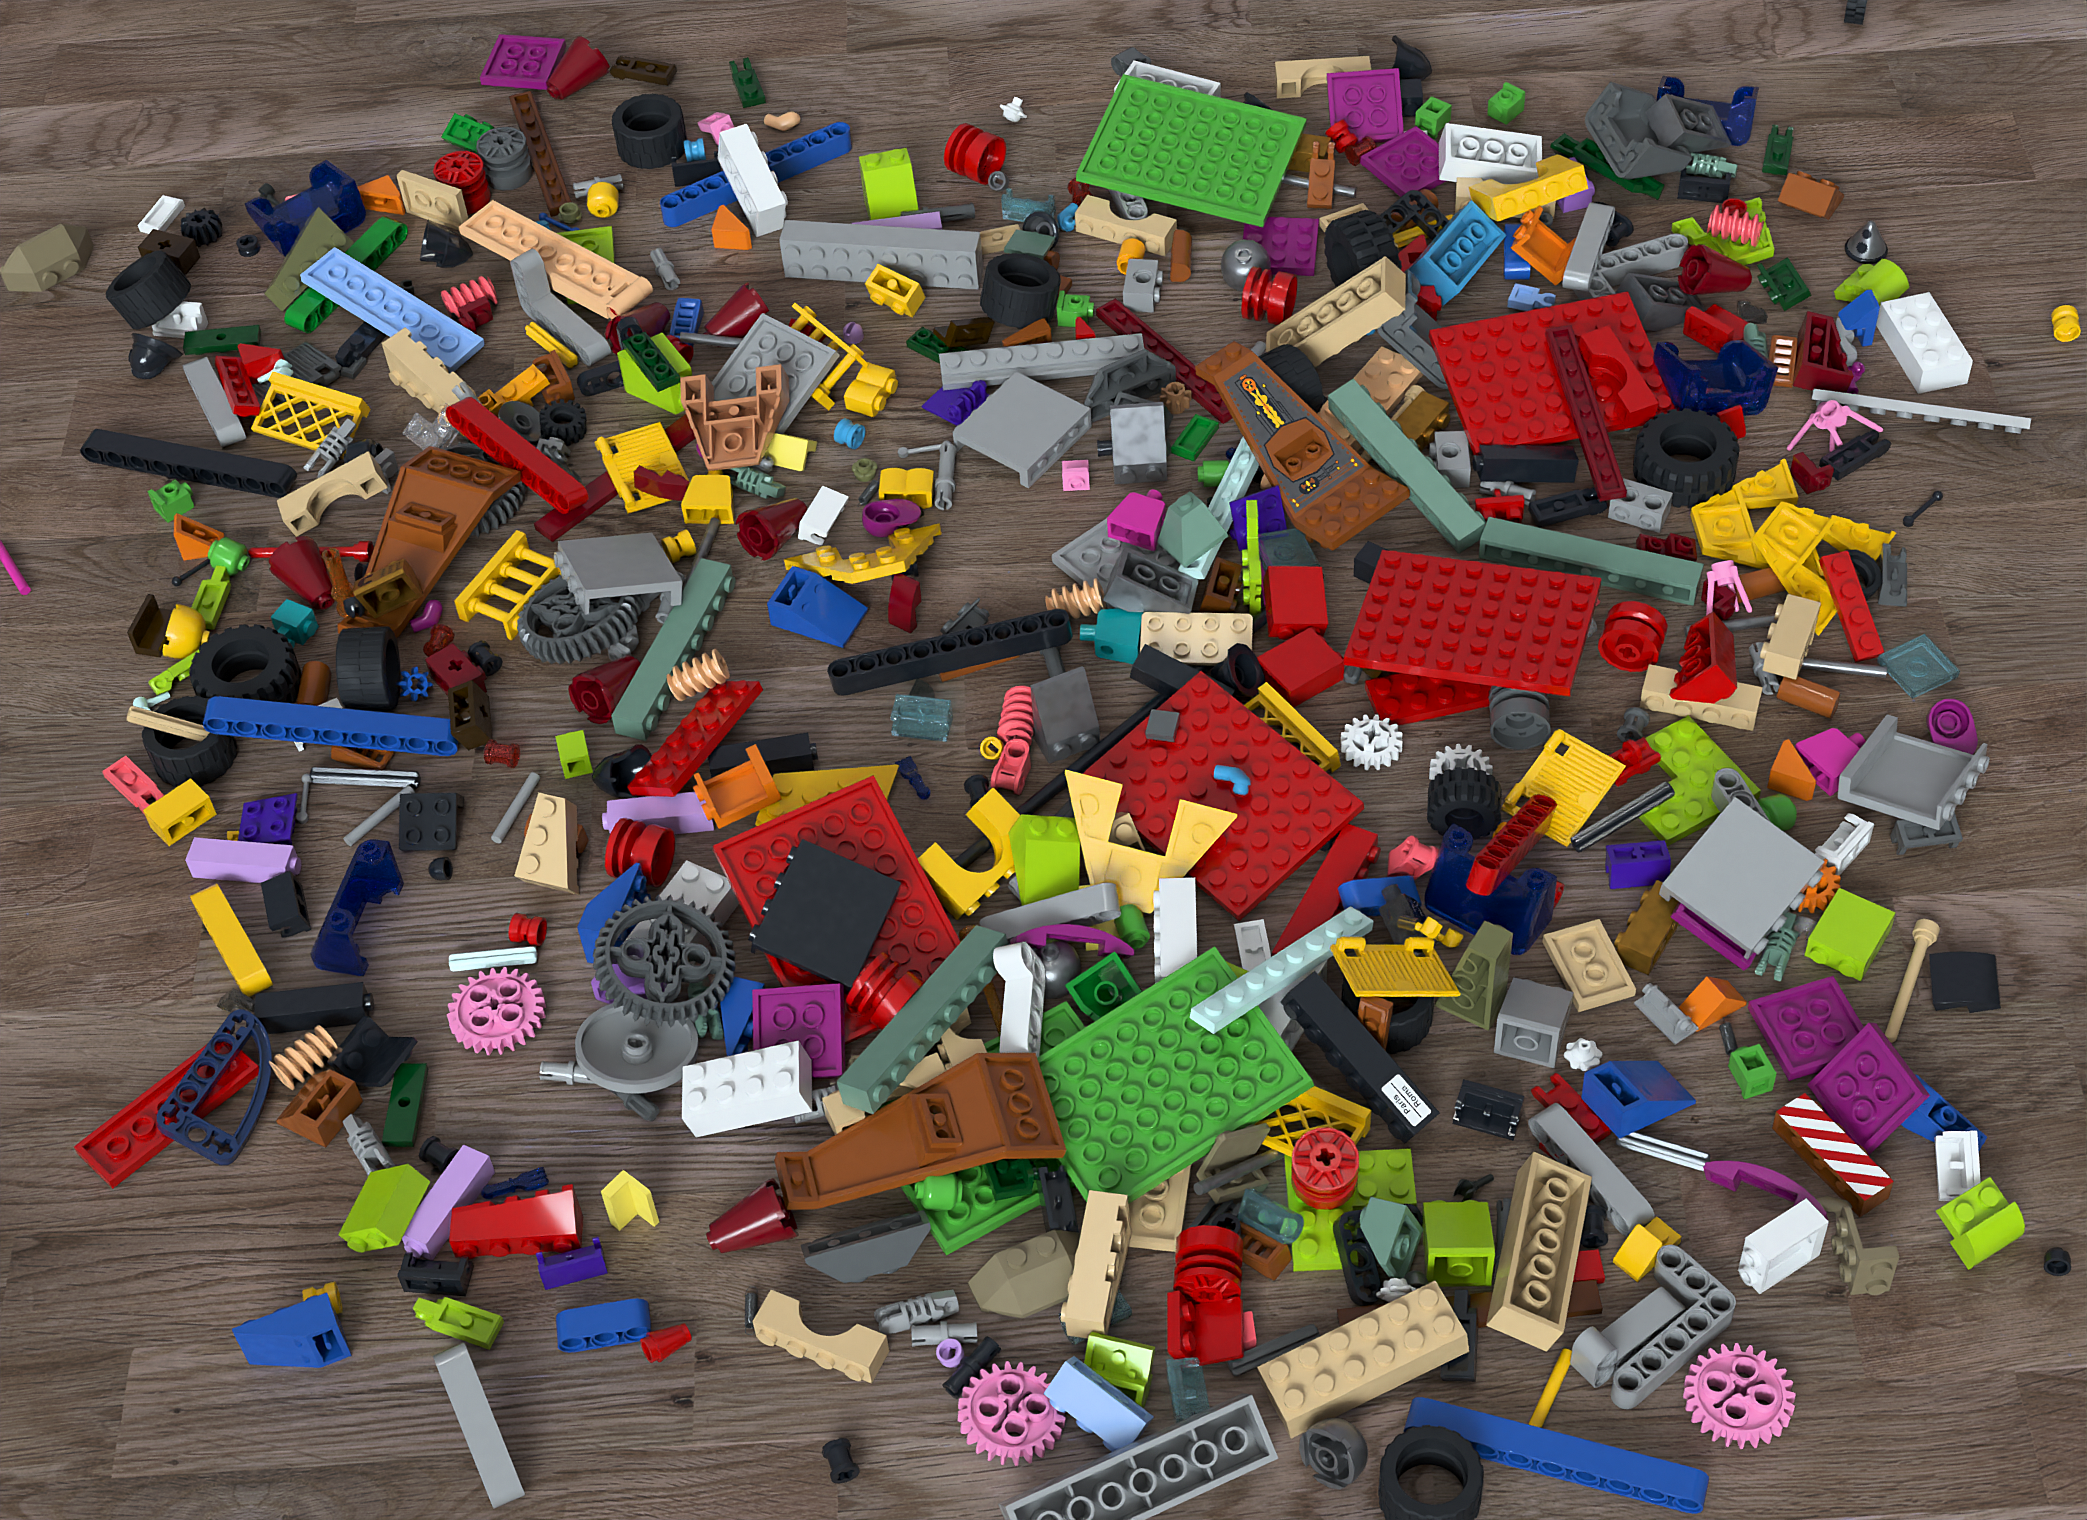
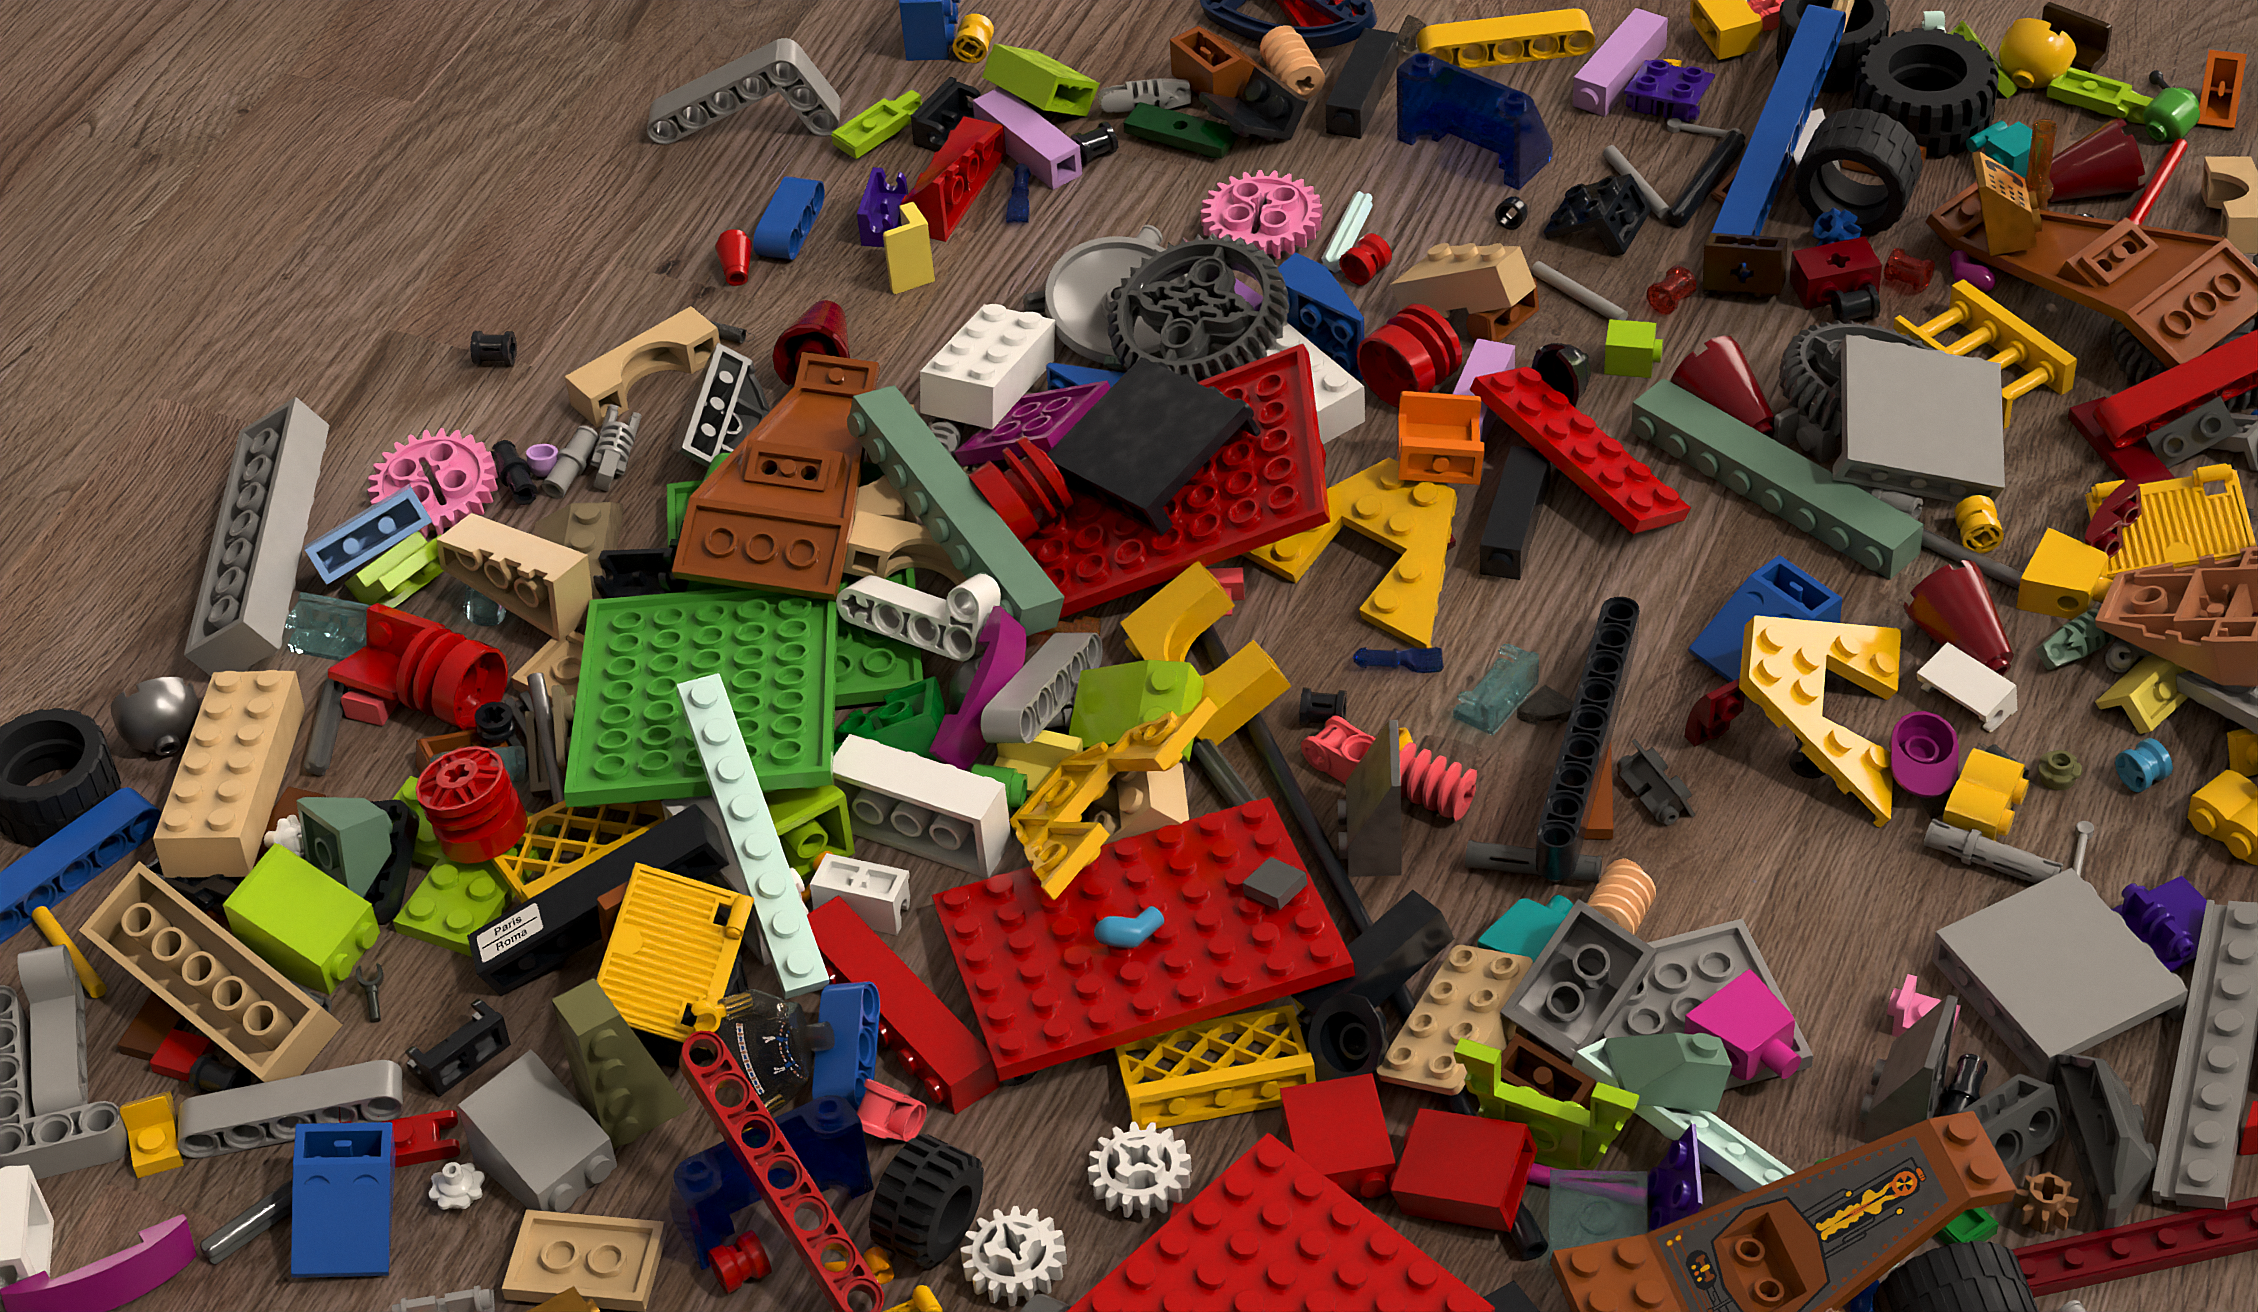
camera: 115 degrees right, 5 degrees down
(285, 904) = (1540, 80): black hinge -> none
(699, 676) = (1683, 464): light nougat piece -> none

